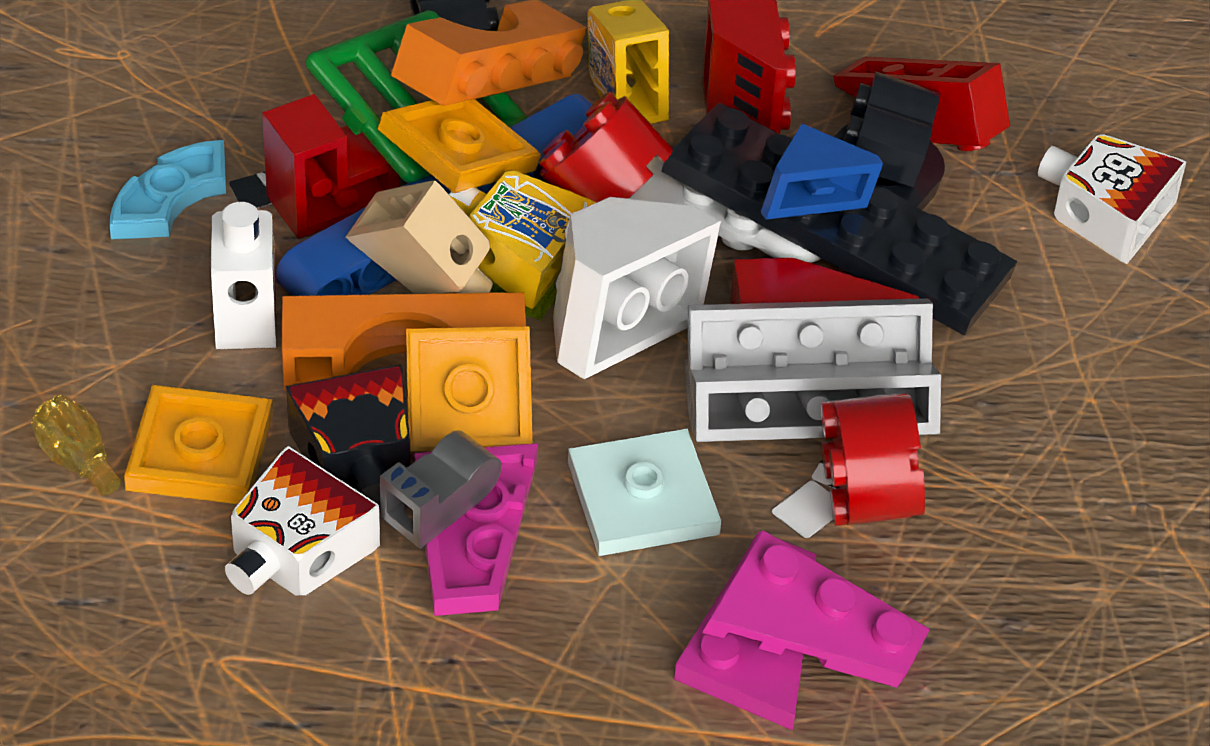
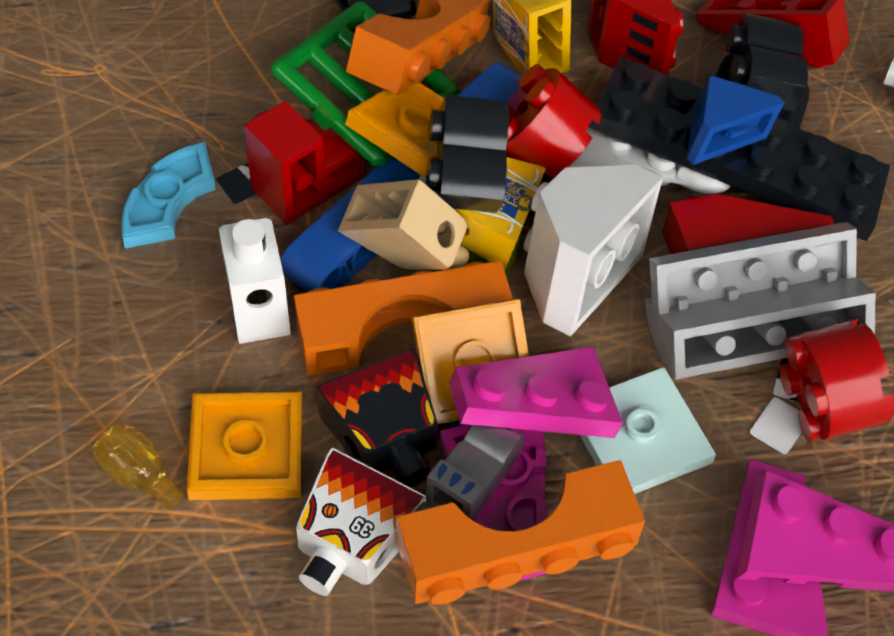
camera: 10 degrees left, 10 degrees up
(397, 562) = (453, 554): none -> orange arch
(503, 168) = (469, 153): none -> black brick
(529, 423) = (538, 393): none -> dark pink wing

